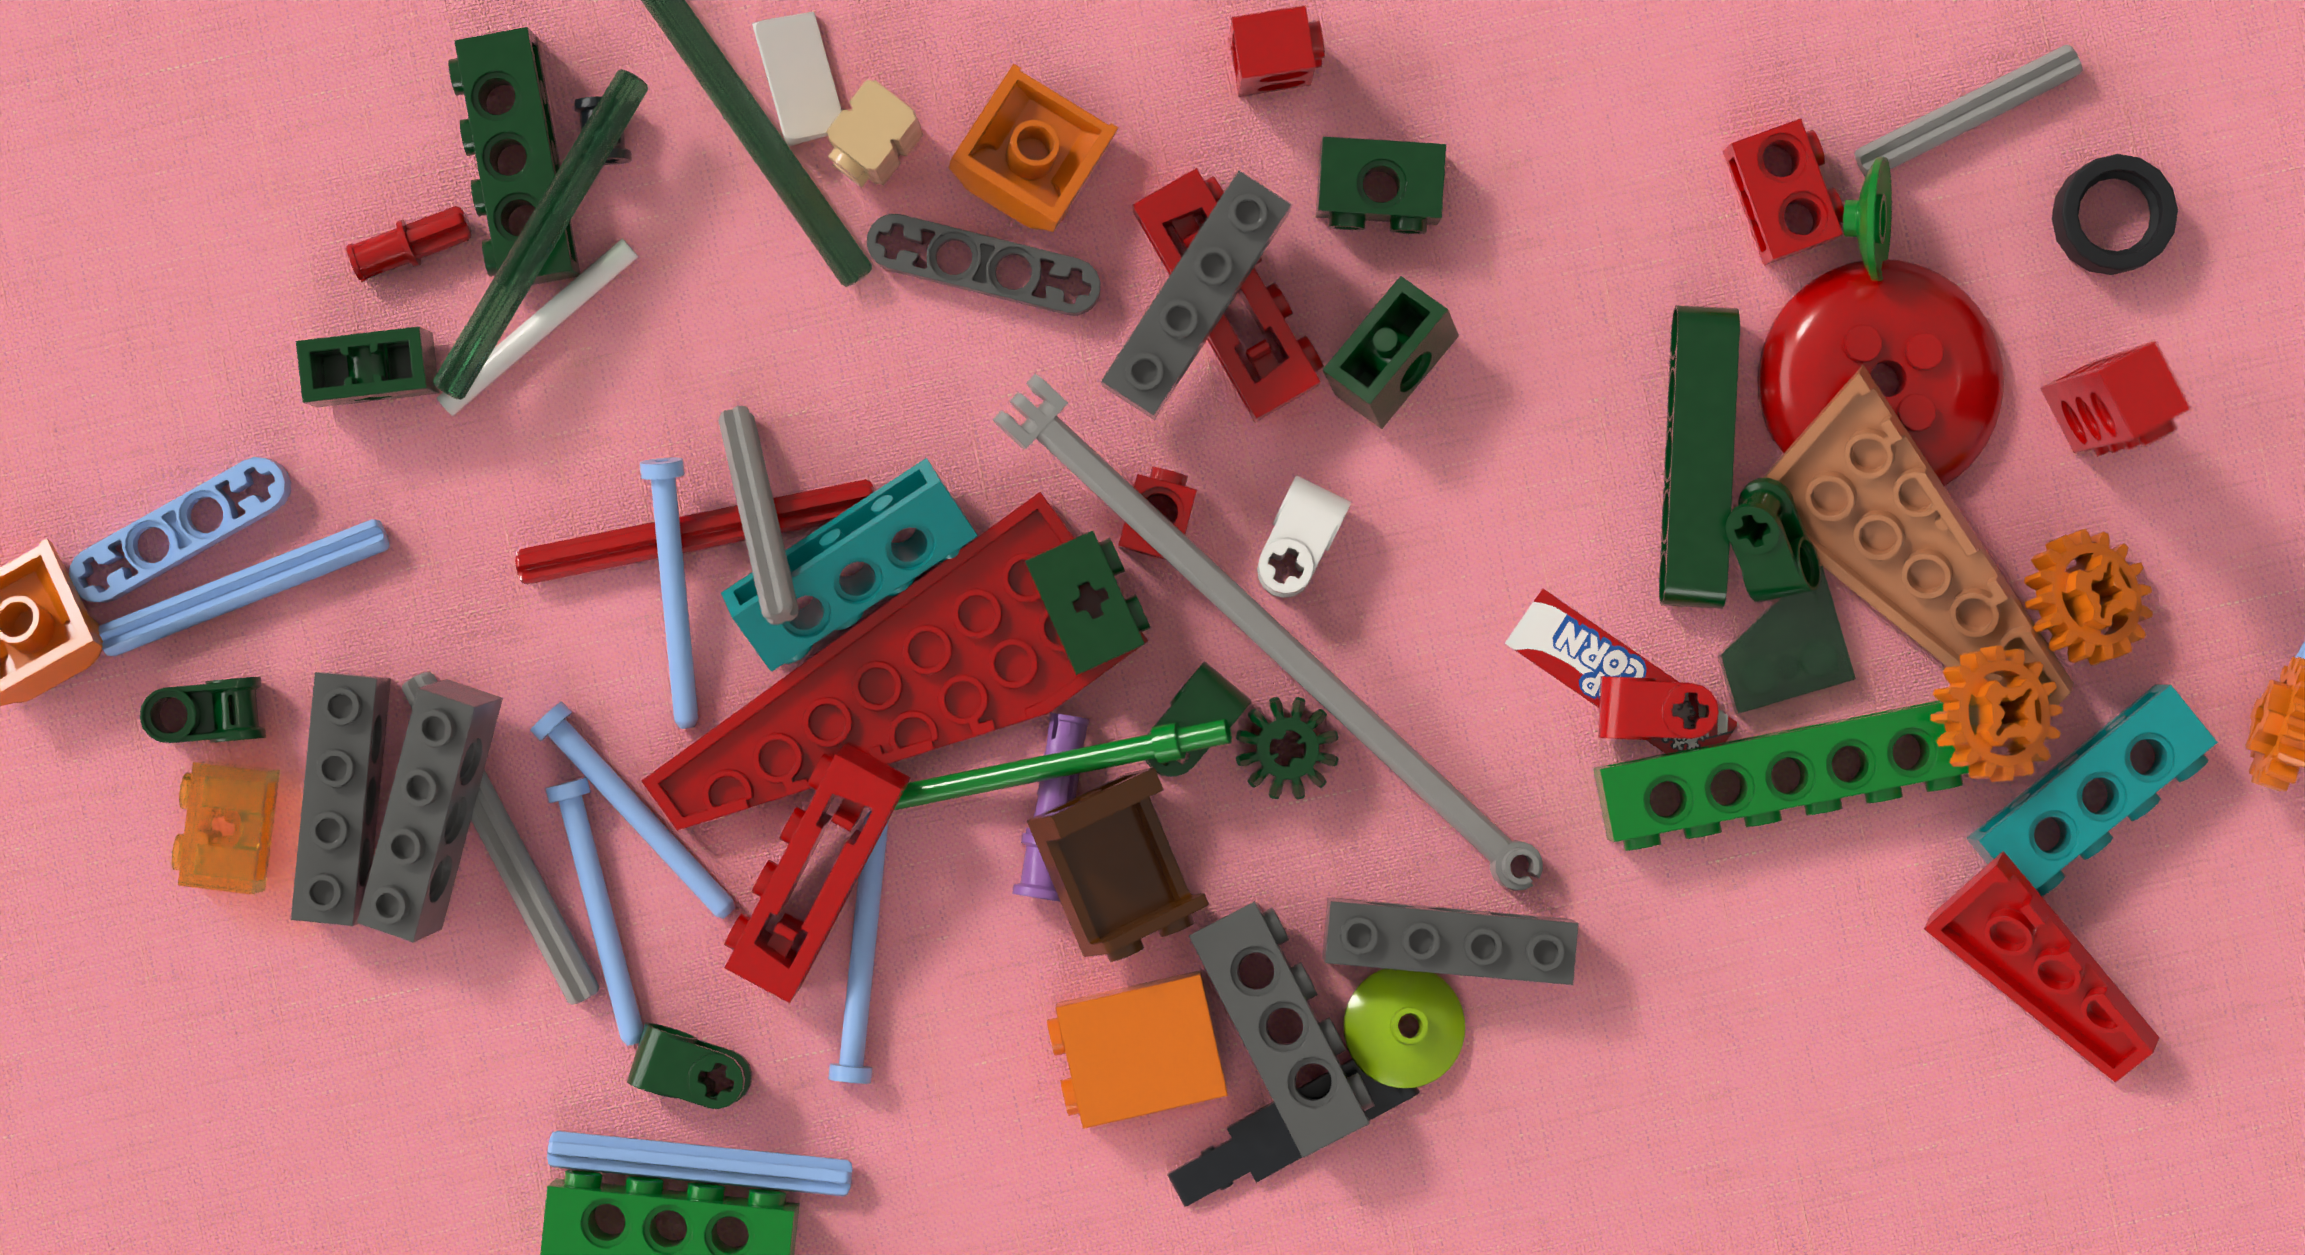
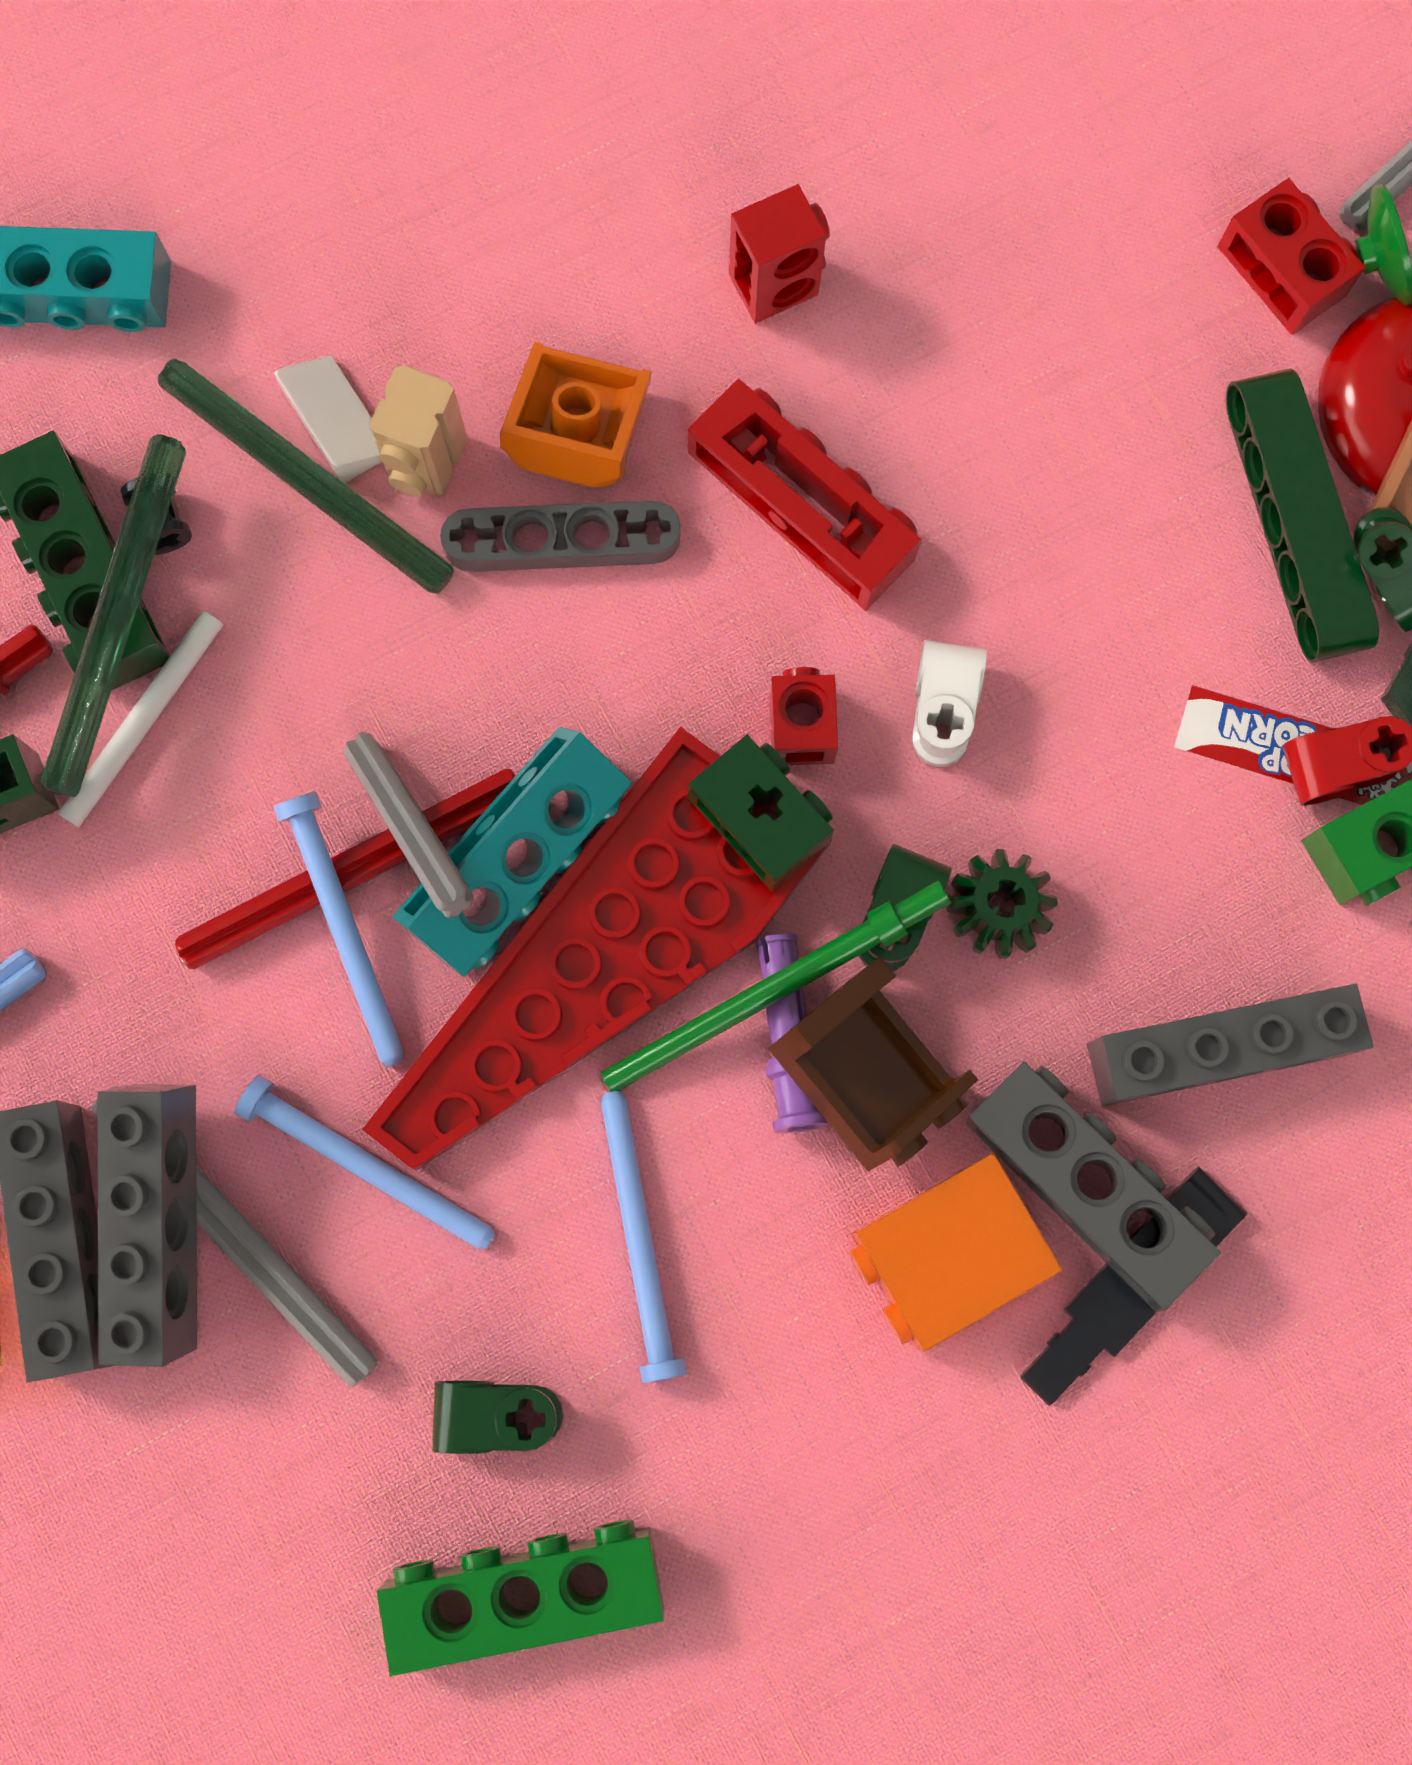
camera: 20 degrees left, 10 degrees down
(598, 906) = (353, 1274): light blue bar -> none
(699, 1163) = (532, 1516): light blue axle -> none
(768, 957) = (544, 1273): red brick -> none
(1196, 295) = (777, 482): dark grey brick -> none
(1264, 630) = (945, 790): light grey hinge -> none
(1374, 1033) = (1182, 1158): lime dish -> none
(1391, 352) = (978, 495): dark green brick -> none
(1414, 167) = (937, 328): dark green brick -> none

